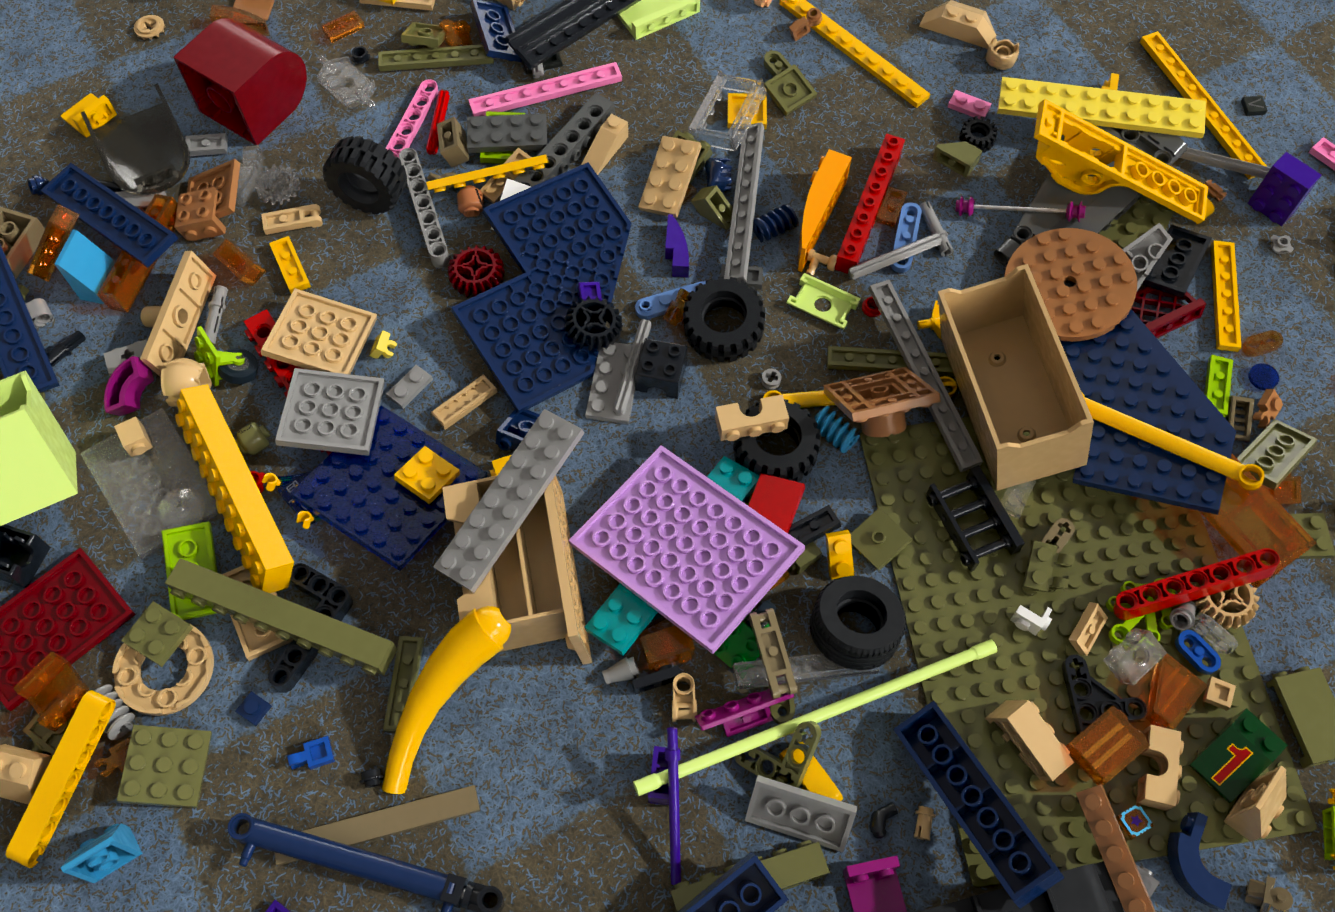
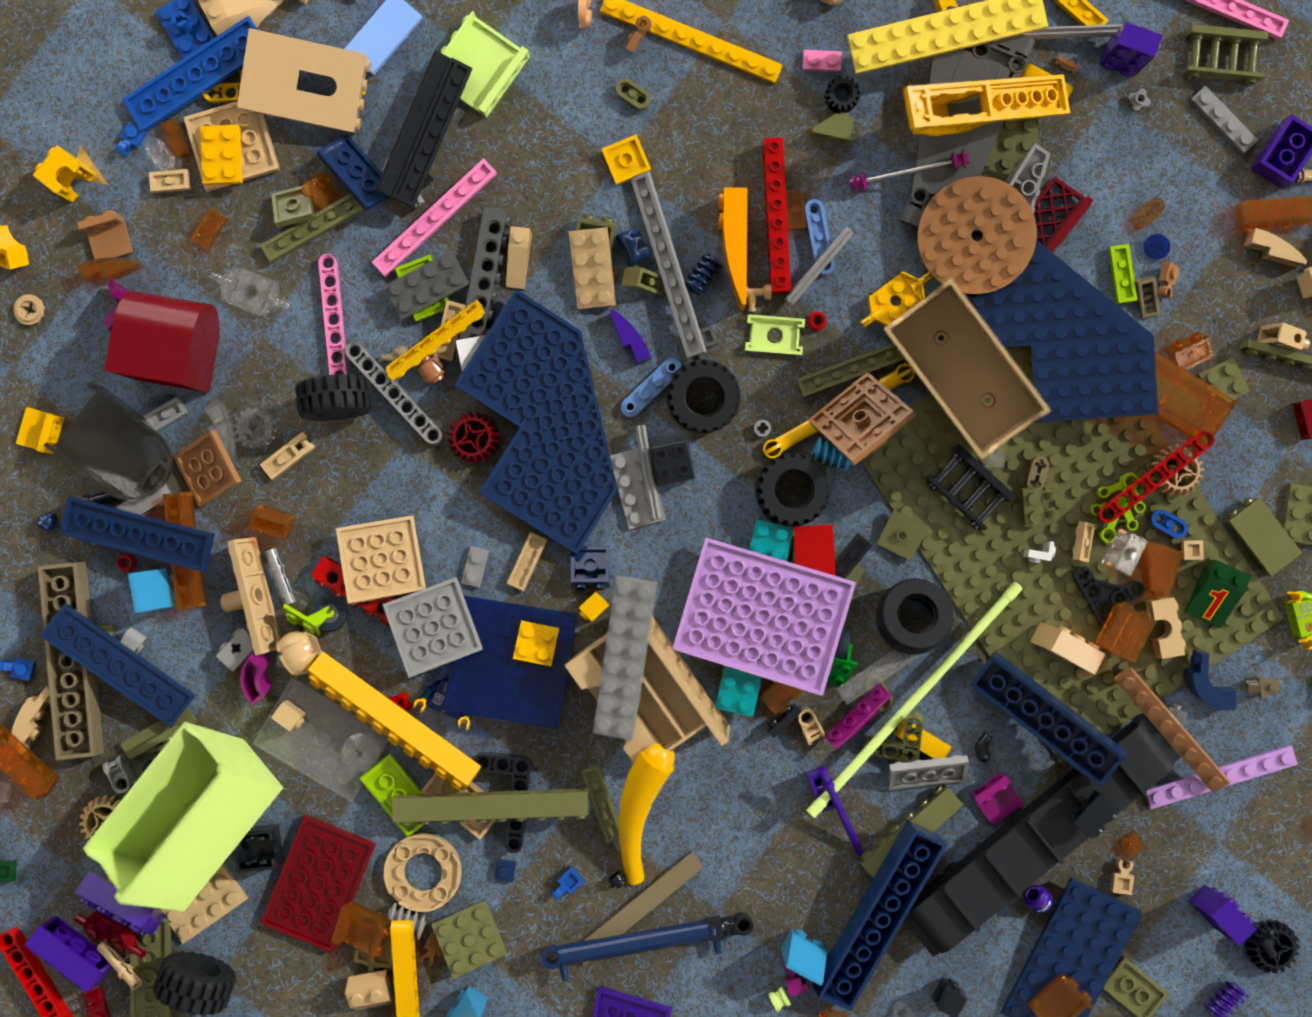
camera: 25 degrees left, 25 degrees up
(52, 242) = (113, 584): clear orange brick -> none
(65, 347) = (176, 659): black axle -> none
(157, 634) = (405, 854): olive plate -> none
(197, 216) = (208, 492): medium nougat bracket -> none
(252, 438) = (379, 670): olive head -> none
(289, 264) = (312, 501): yellow plate -> none
(360, 55) = (244, 249): black plate -> none
(380, 346) = (432, 542): light yellow tile -> none
(439, 116) = (355, 295): red axle -> none
(452, 142) = (384, 317): dark tan brick -> none
(589, 289) = (580, 419): dark purple tile -> none
(594, 329) = (590, 447): black gear -> none
(621, 671) = (755, 724): light grey cone -> none
(675, 310) = (658, 402): clear orange plate -> none
(734, 424) = (785, 480): tan arch -> none
(742, 122) = (631, 178): clear window -> none
(773, 653) = (865, 673): dark tan plate -> none
(790, 90) = (655, 120): olive plate -> none
(839, 554) = (879, 564): yellow plate -> none
(919, 362) = (884, 372): light grey plate -> none
(924, 823) = (1013, 737): tan pin -> none
(935, 227) = (840, 215): light grey pin -> none
(1134, 821) = (1158, 672): clear orange tile -> none
(1176, 445) = (1098, 366): yellow piece -> none
(1178, 262) = (1060, 174): black plate -> none
(1183, 616) = (1151, 503): light grey cone -> none
(1215, 634) = (1168, 502): clear plate -> none
(1225, 296) = (1105, 177): yellow plate -> none
(1259, 805) = (1240, 628): tan slope -> none
(1277, 452) = (1184, 324): olive plate -> none

